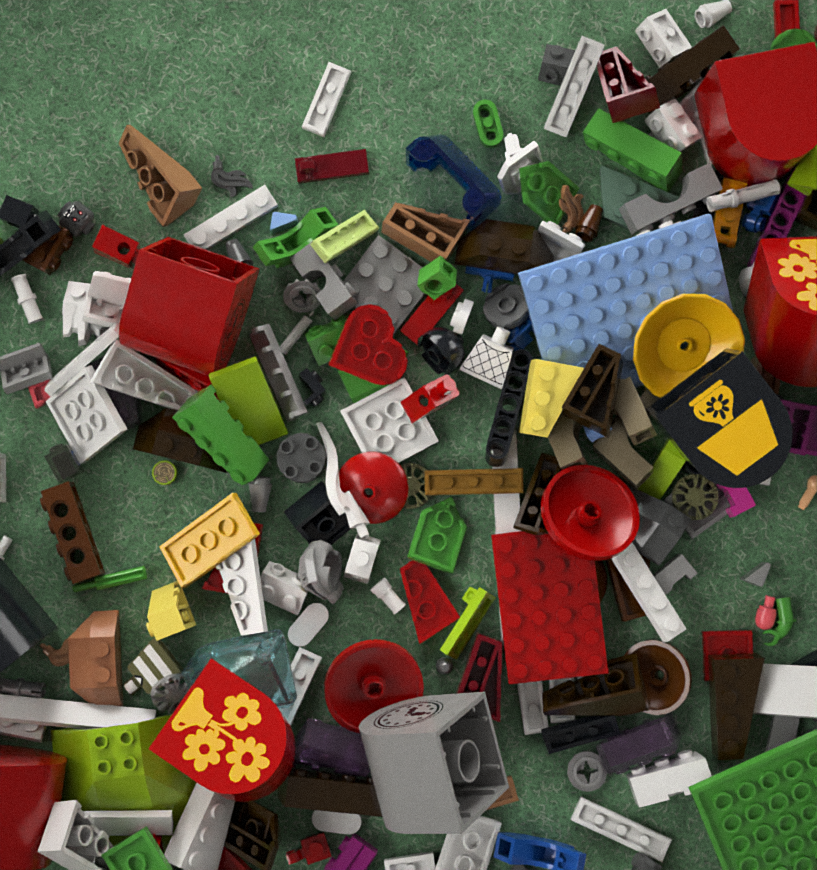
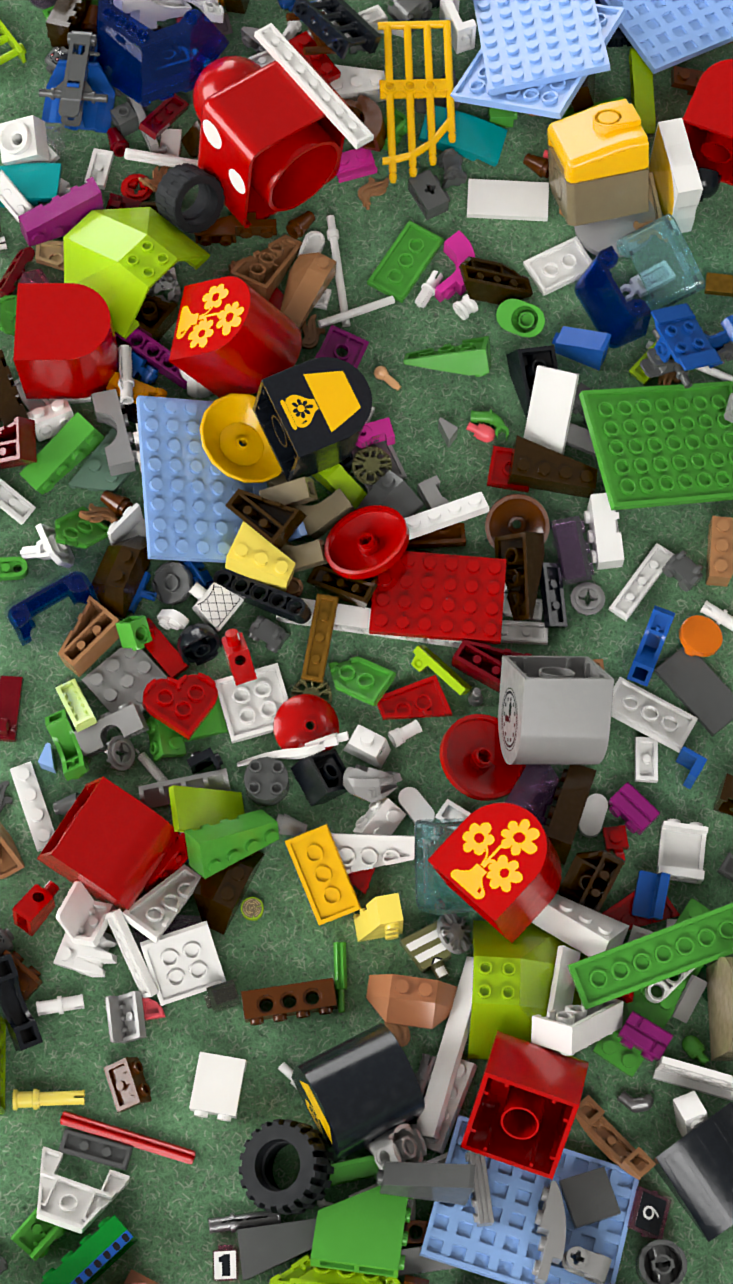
camera: 80 degrees left, 15 degrees down
(471, 423) = (269, 633): none -> dark grey piece
(531, 442) = (295, 587): none -> medium nougat plate

